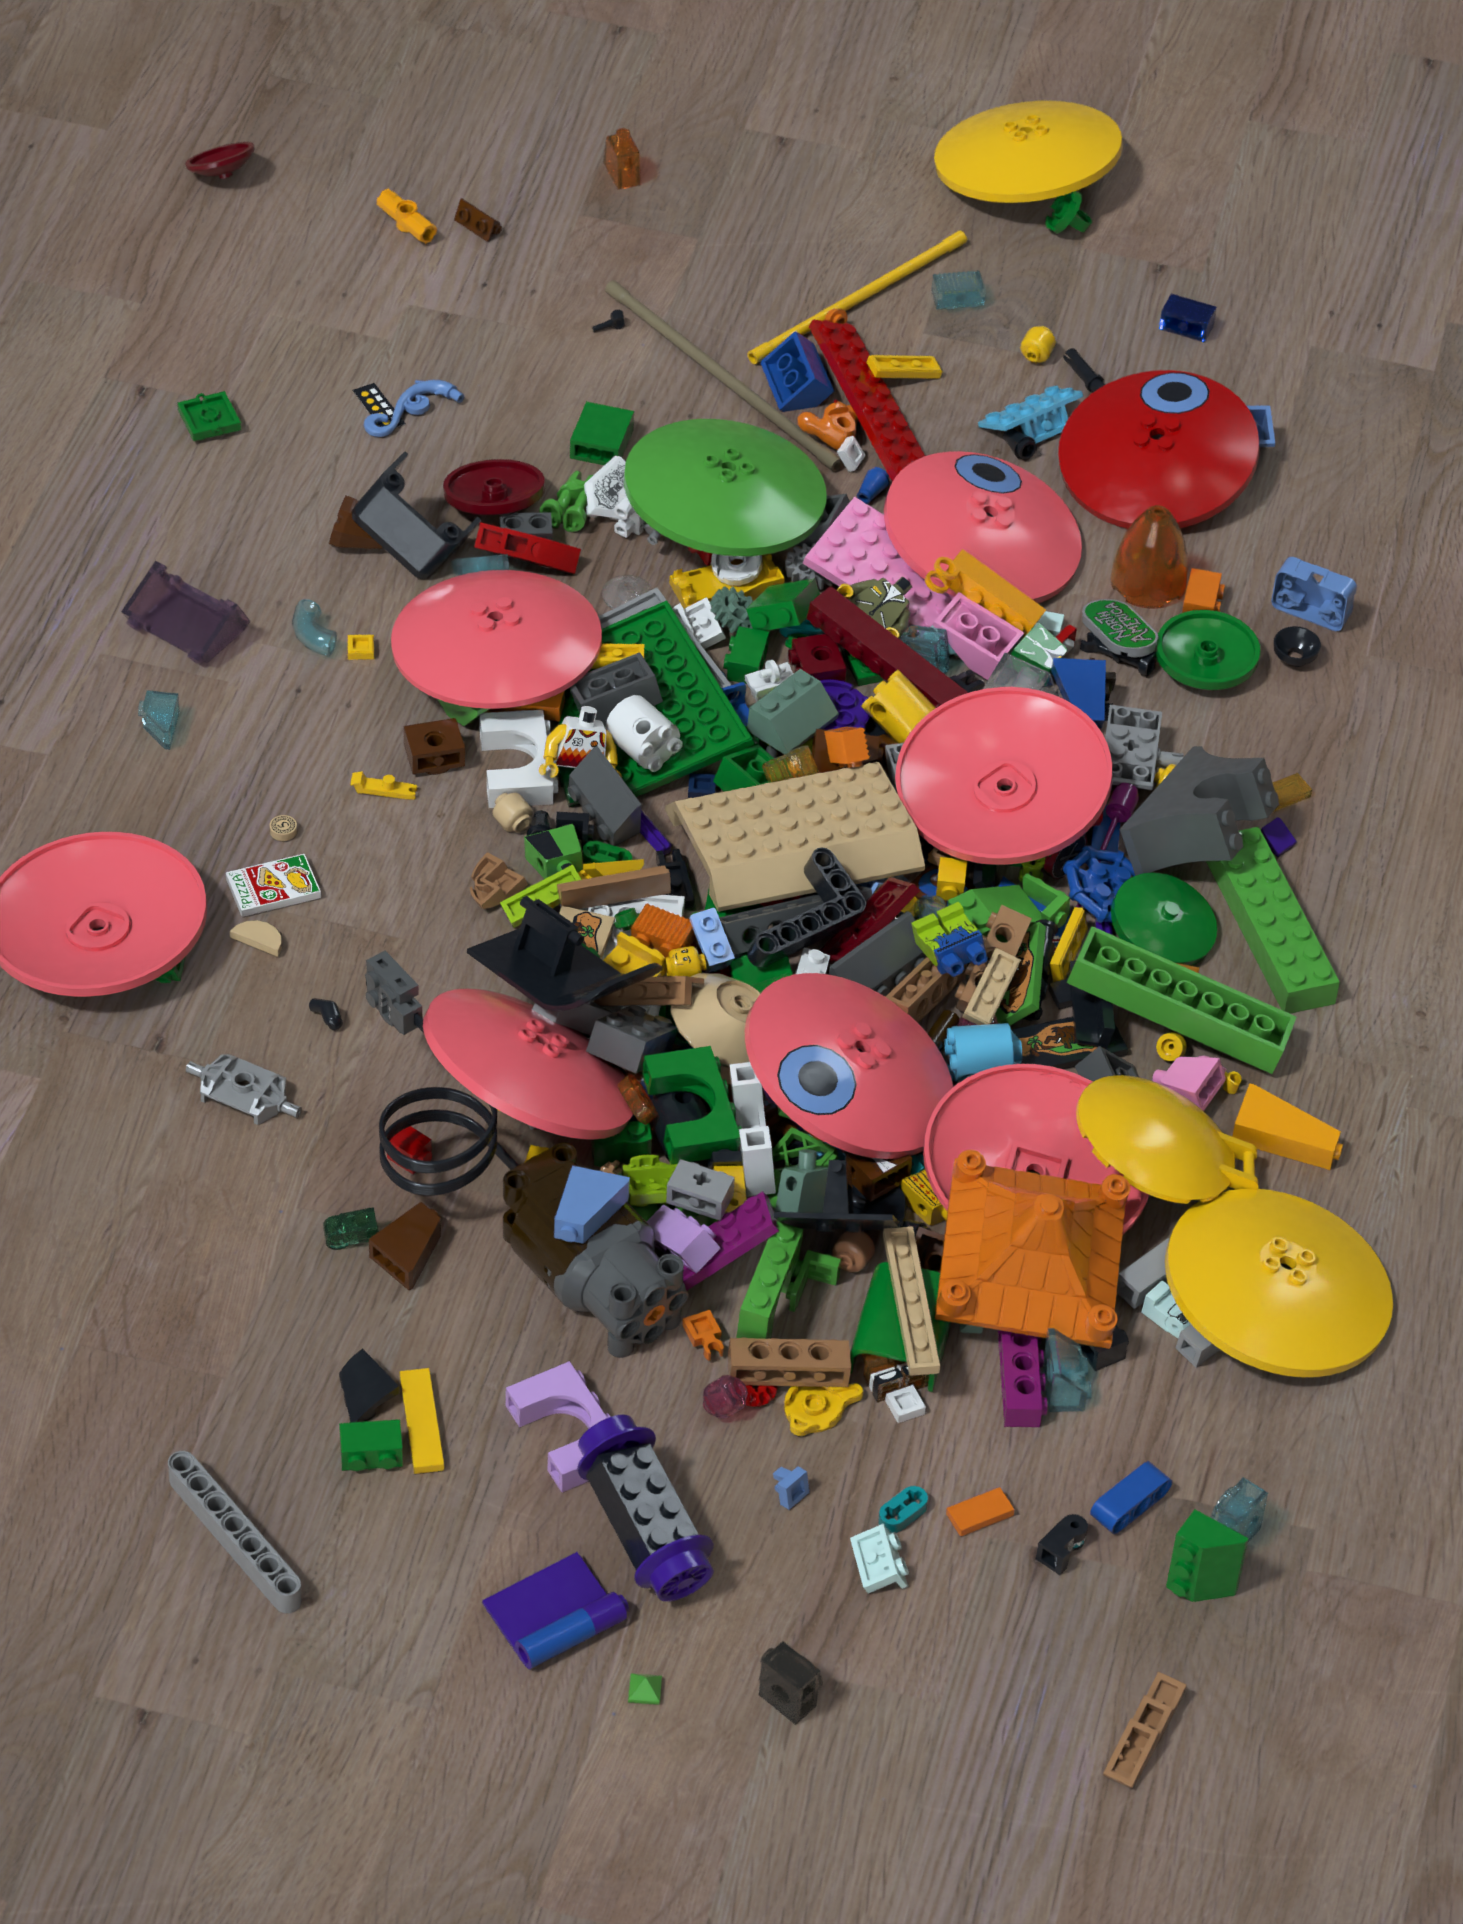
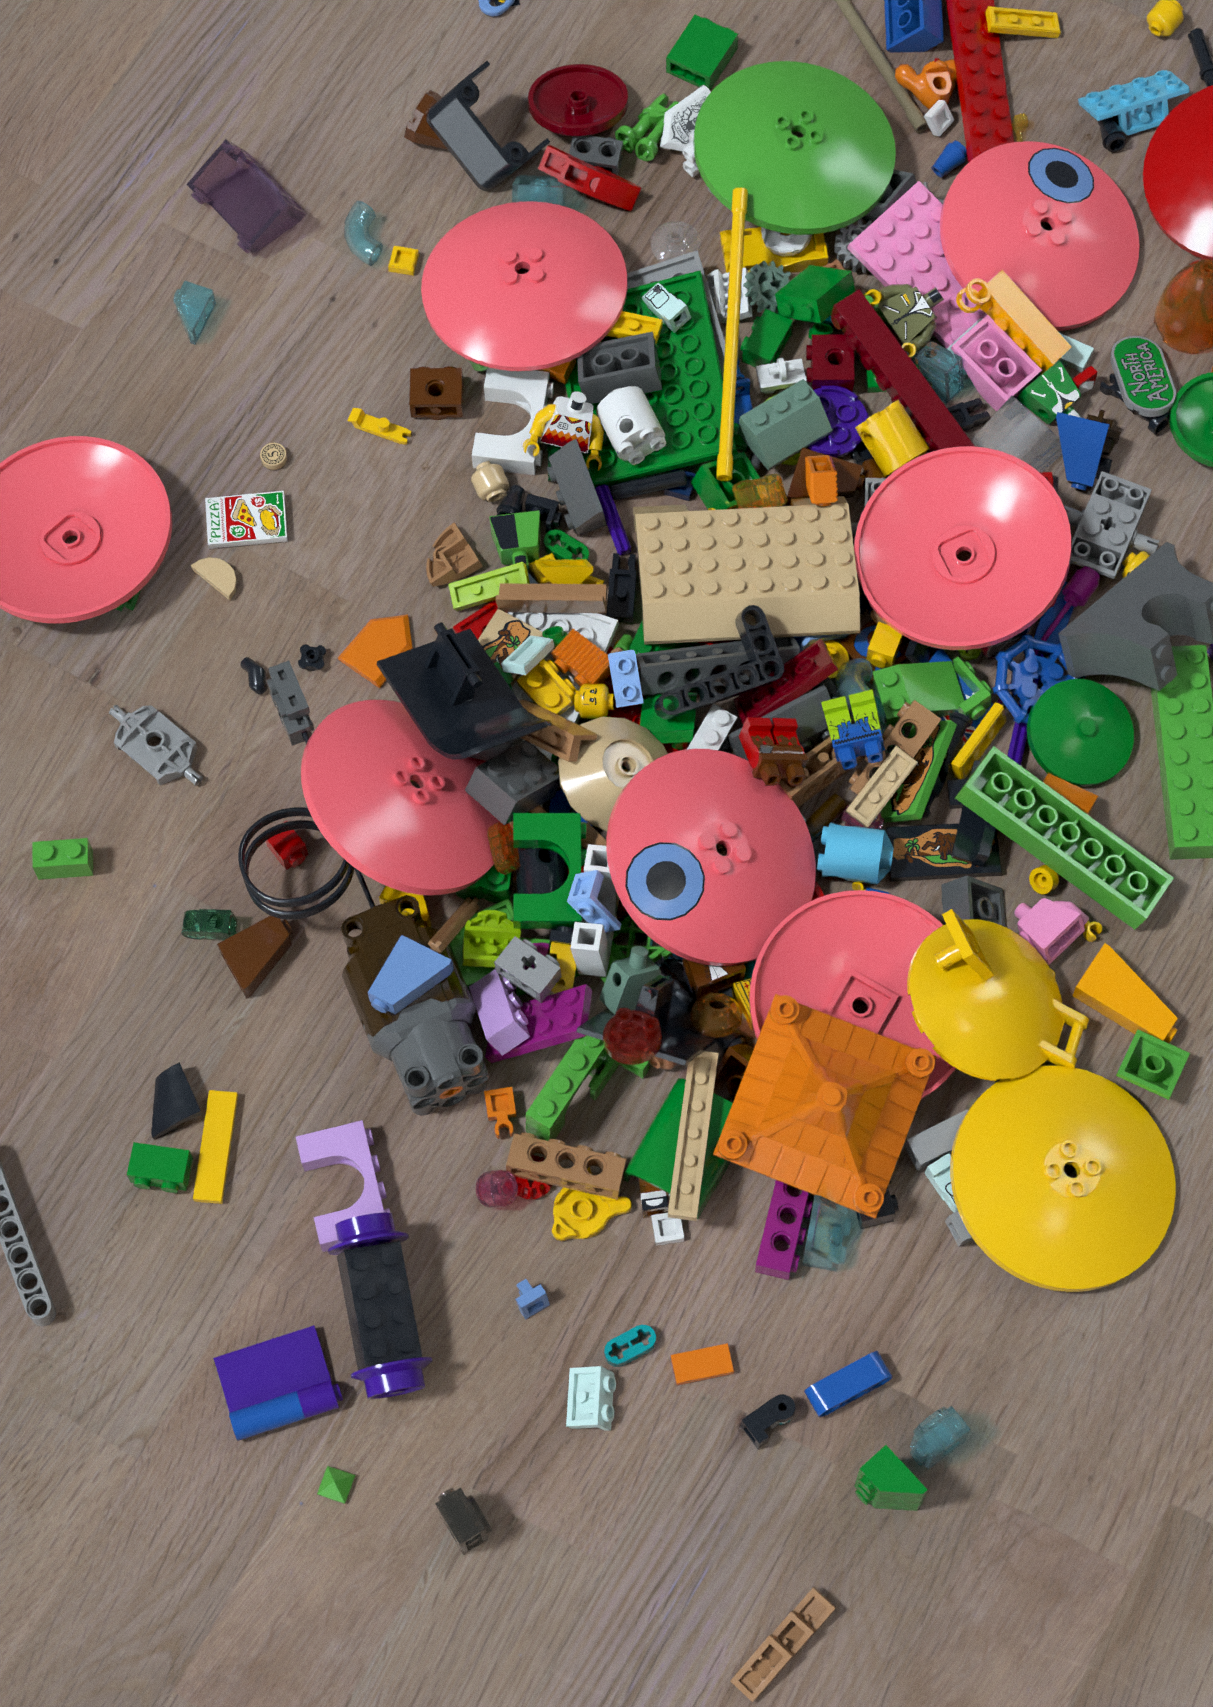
camera: 20 degrees right, 20 degrees up
(181, 1198) = (62, 858): none -> bright green brick
(446, 968) = (375, 642): none -> orange tile
(609, 931) = (527, 655): none -> light aqua tile
(641, 631) = (666, 307): none -> light aqua leg
(673, 788) = (648, 484): none -> black axle
(741, 1111) = (584, 900): none -> light blue bracket
(745, 744) = (725, 456): none -> yellow piece
(832, 1205) = (632, 1036): none -> clear red tile
(879, 967) = (774, 750): none -> hips
(896, 1201) = (716, 1021): none -> clear orange piece
(929, 446) = (1019, 122): none -> clear yellow hand
(1127, 1079) = (965, 947): none -> yellow tile
(1330, 1174) = (1153, 1064): none -> bright green slope

